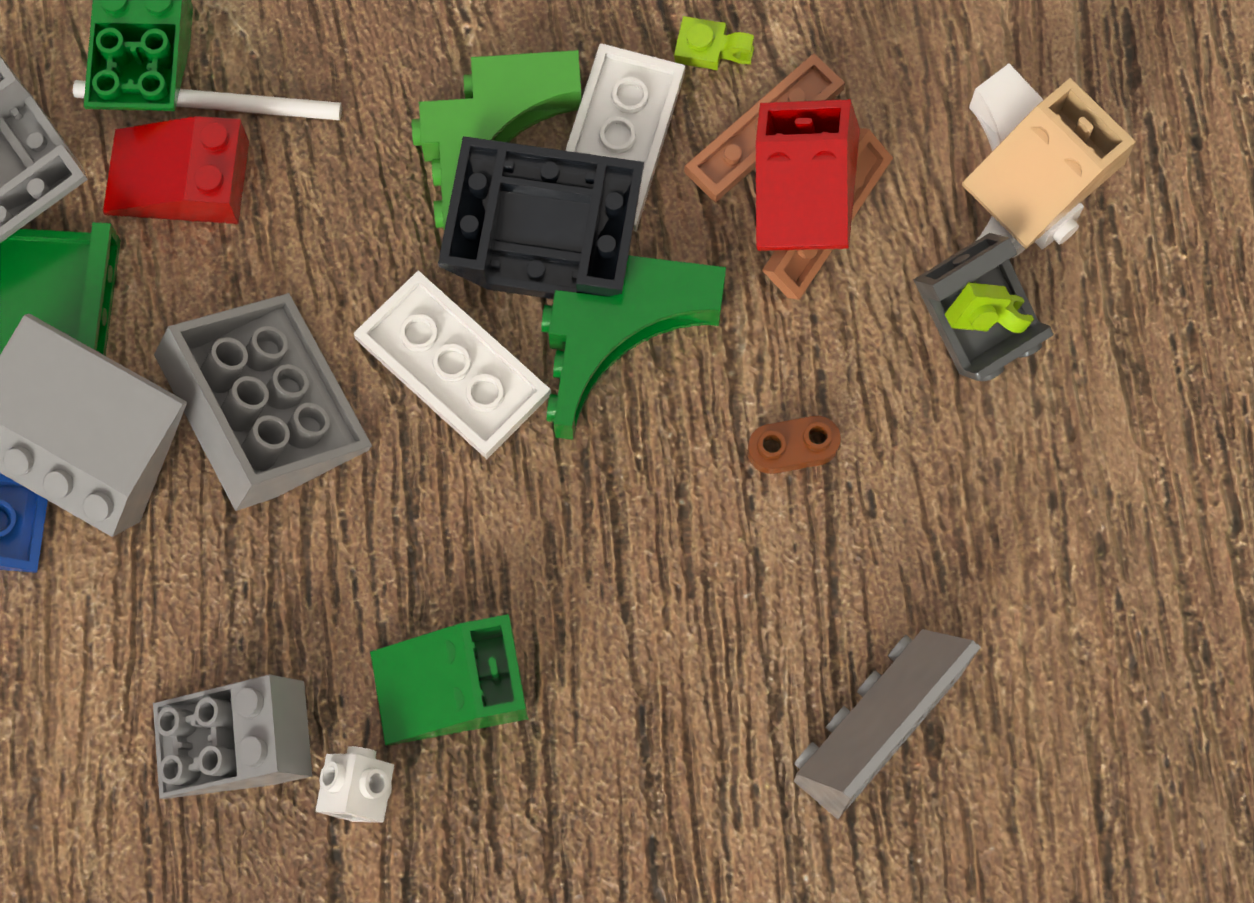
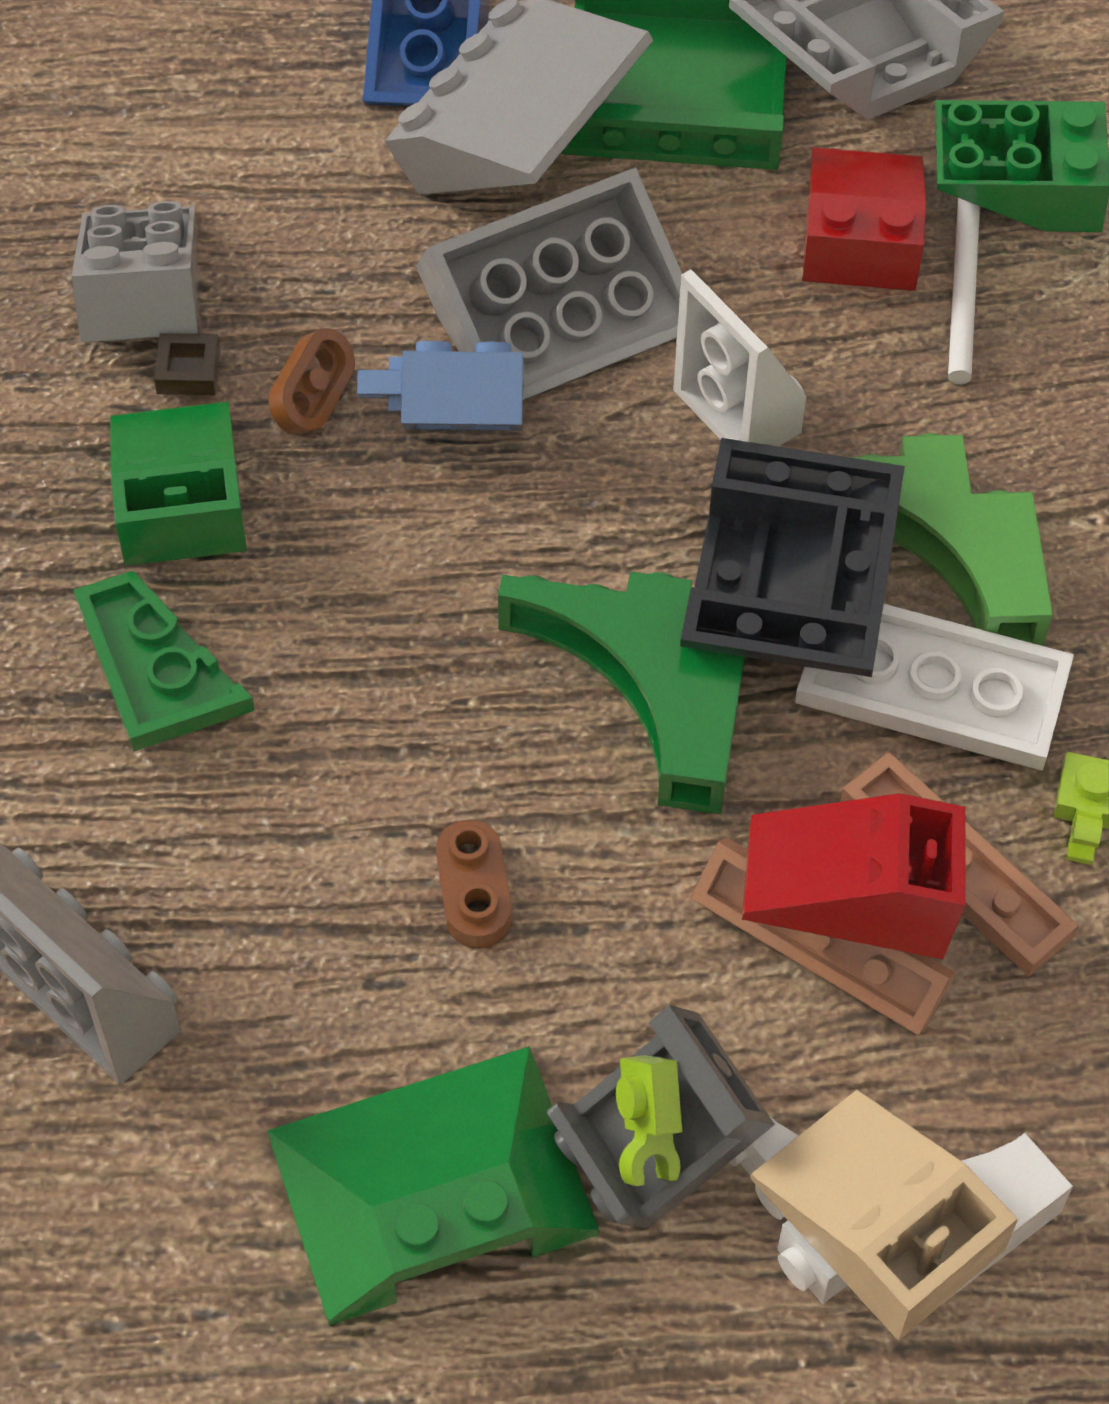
camera: 90 degrees right, 15 degrees down
(333, 687) = (187, 364): none -> dark brown plate
(354, 585) = (311, 387): none -> dark orange plate
(355, 786) = (57, 375): white brick -> none
(367, 260) = (731, 373): none -> white slope
(370, 471) = (451, 388): none -> medium blue hinge
(452, 364) = (599, 486): white plate -> none
(624, 685) = (152, 666): none -> green wing
(1022, 461) = (428, 1181): none -> green slope

